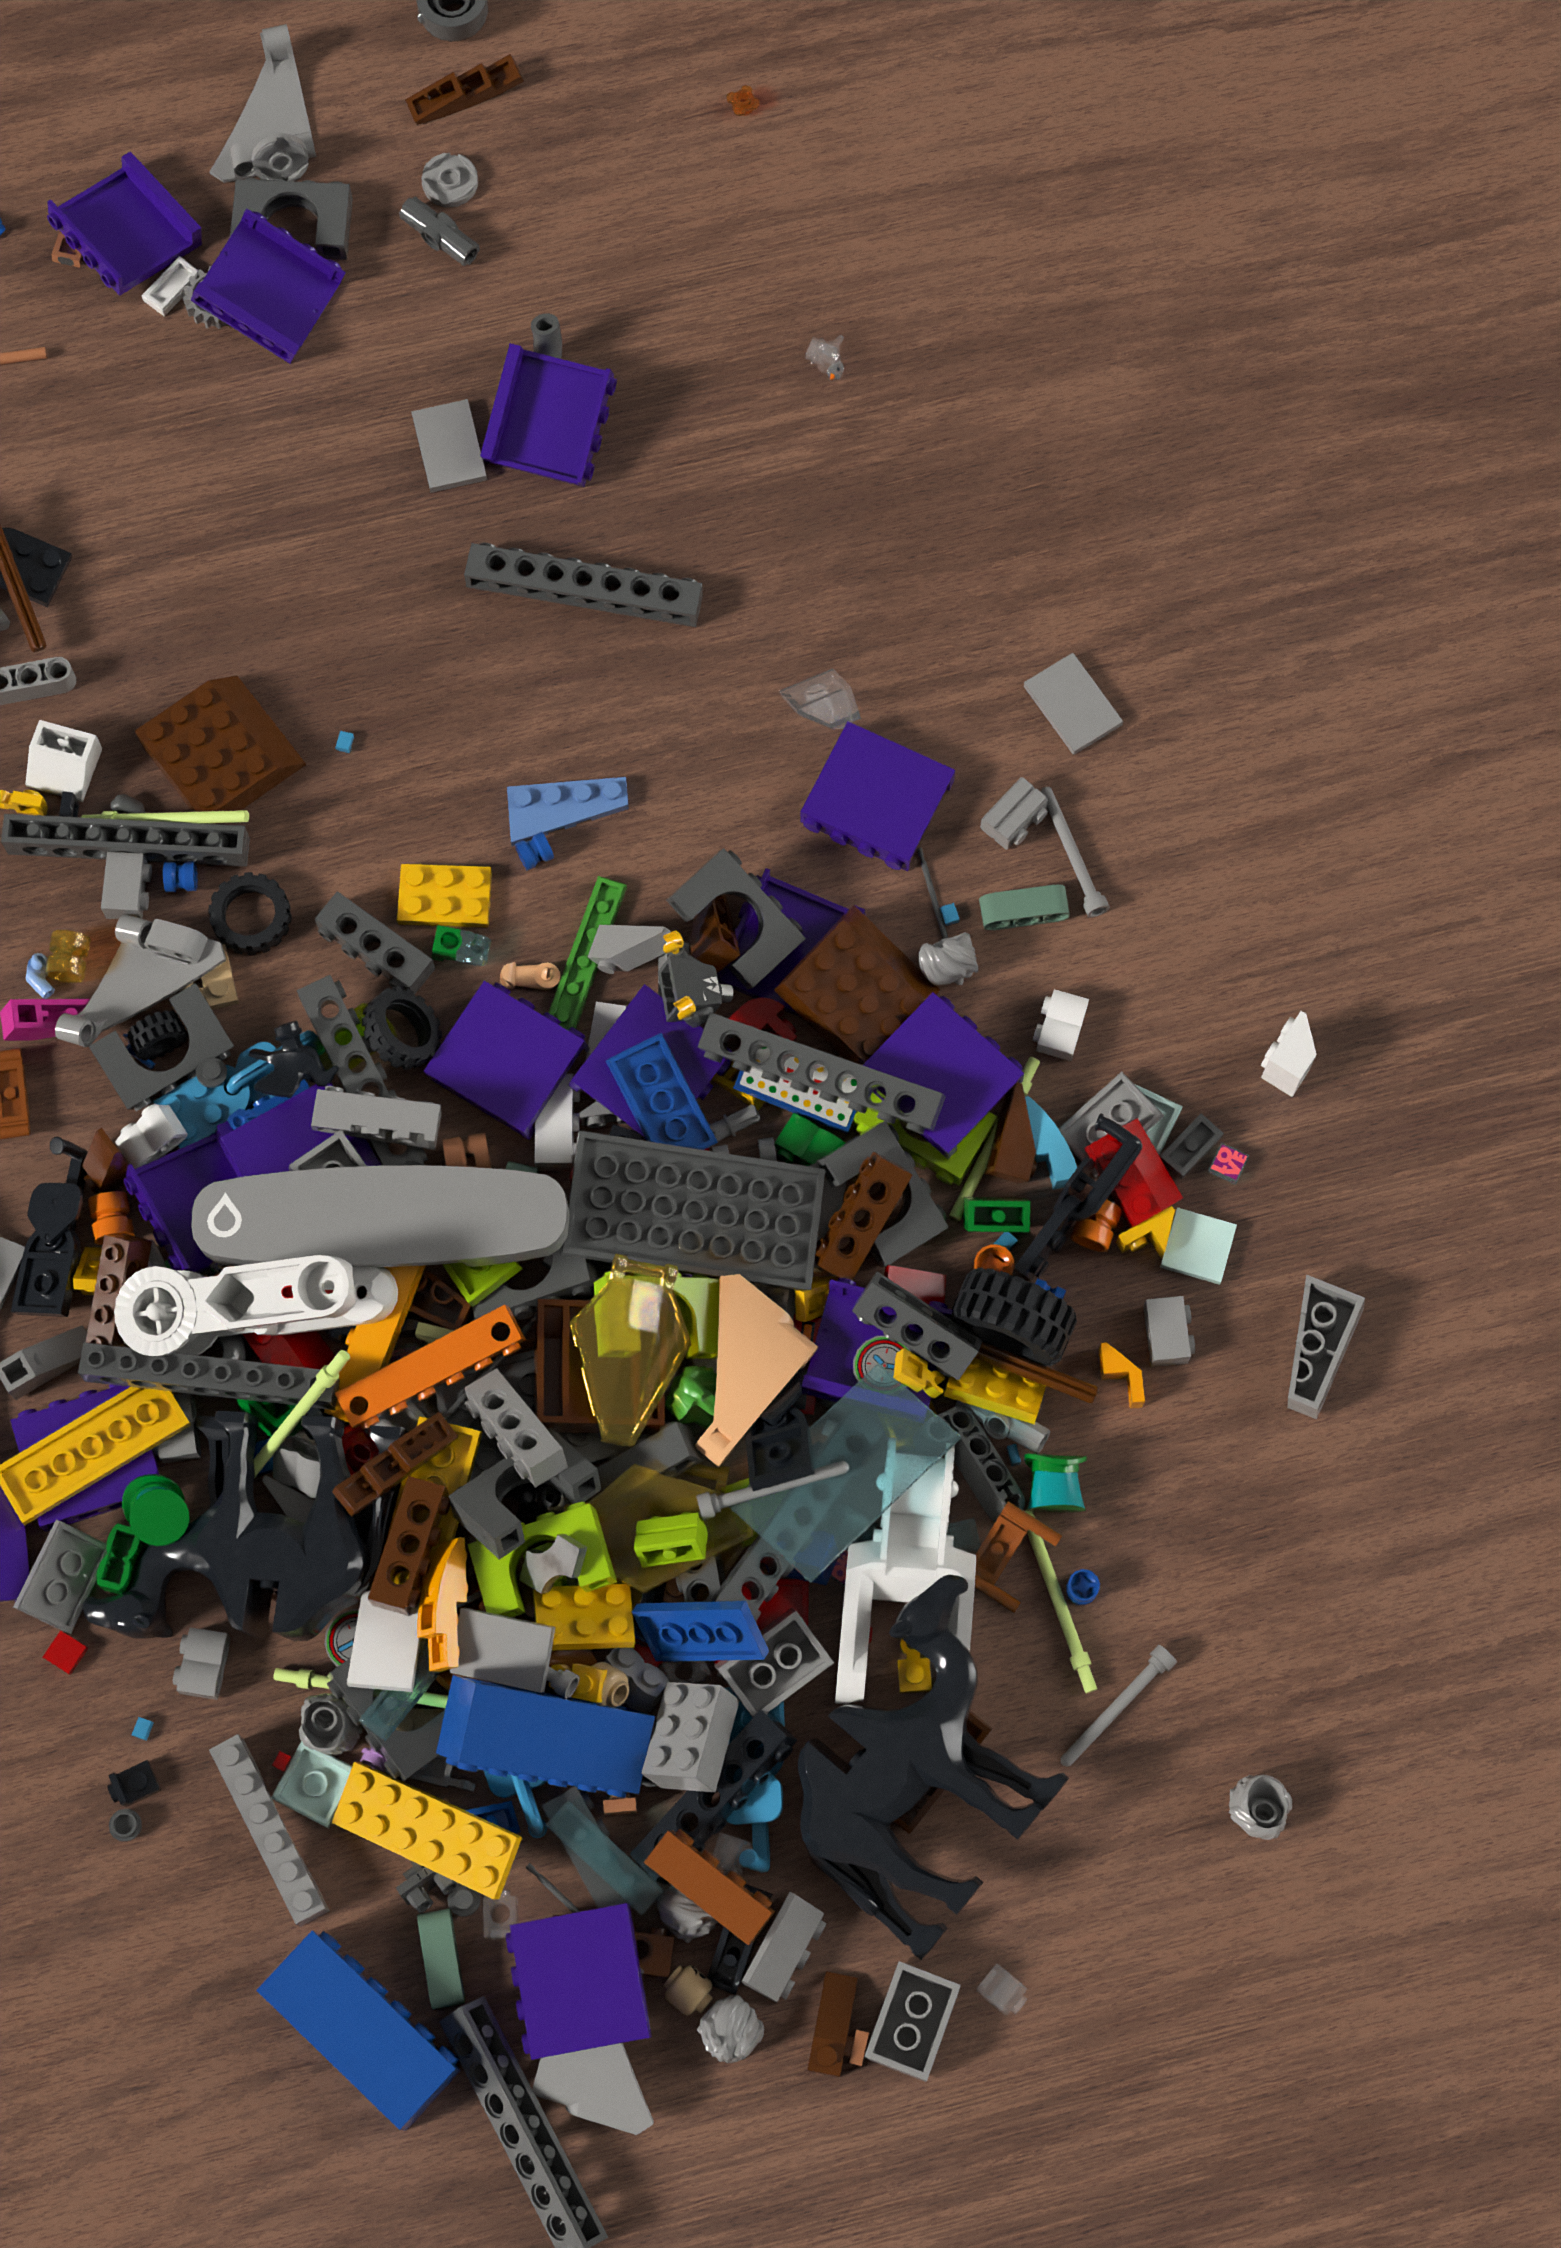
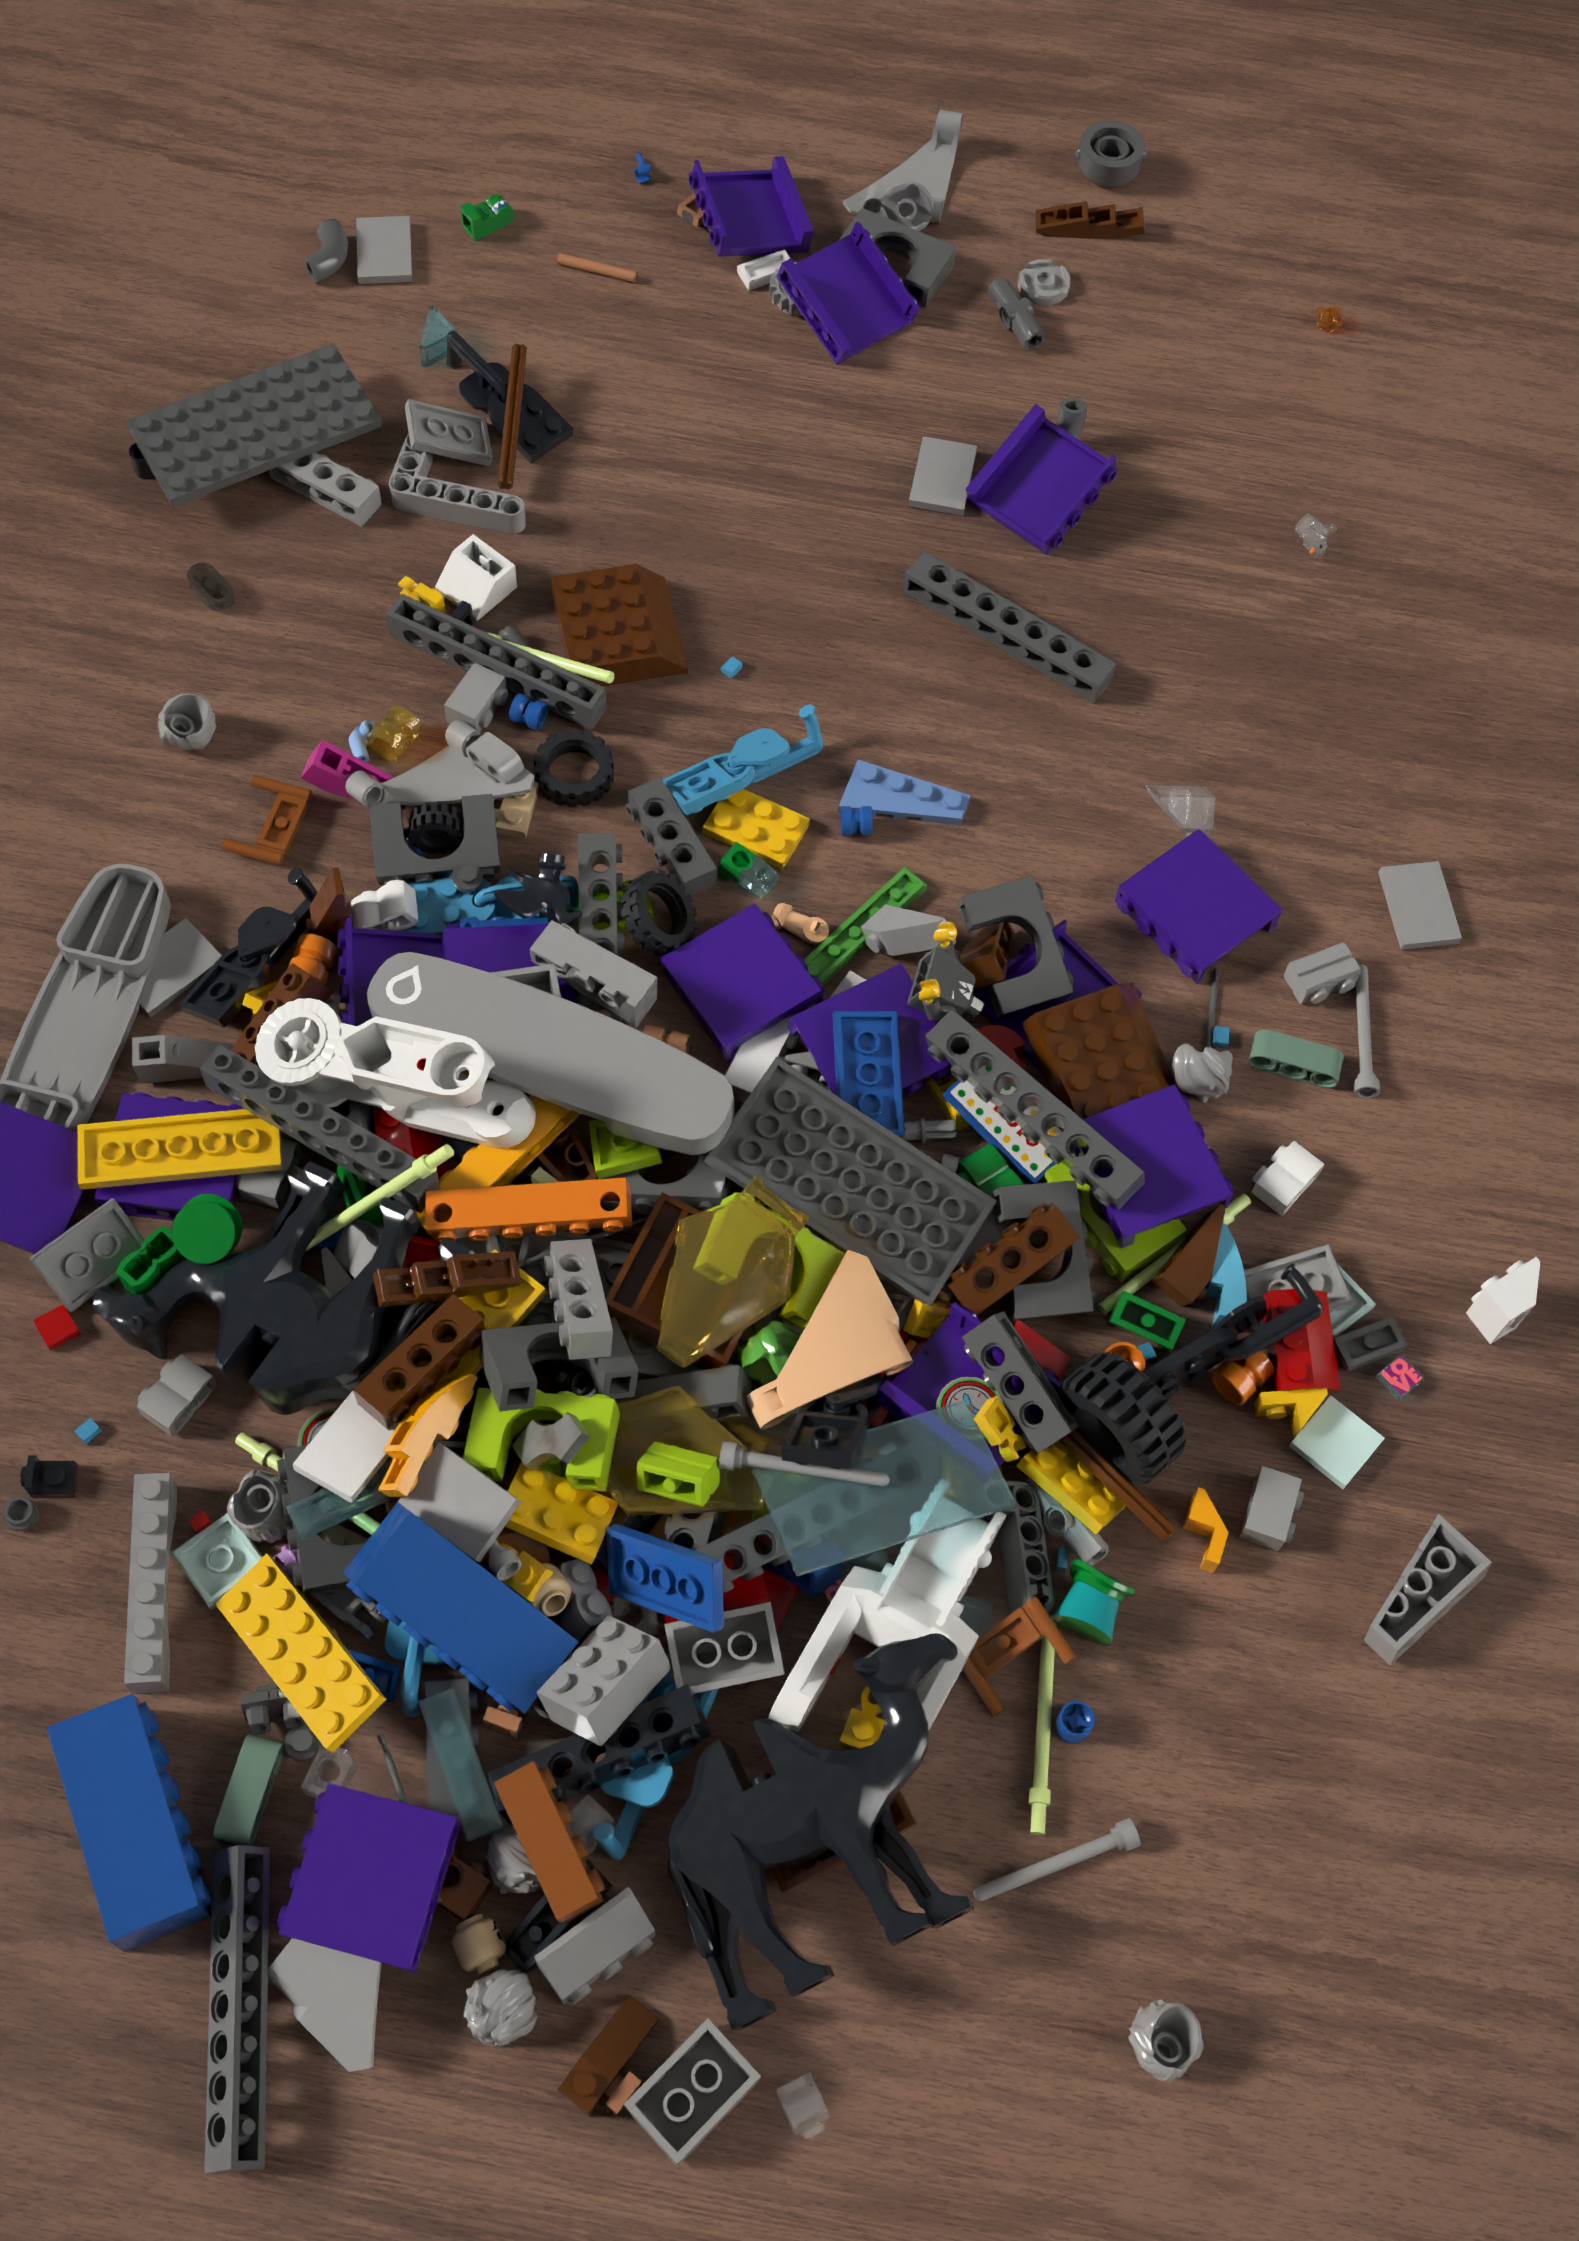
camera: 20 degrees right, 10 degrees down
(398, 855) = (750, 761): none -> dark azure plate

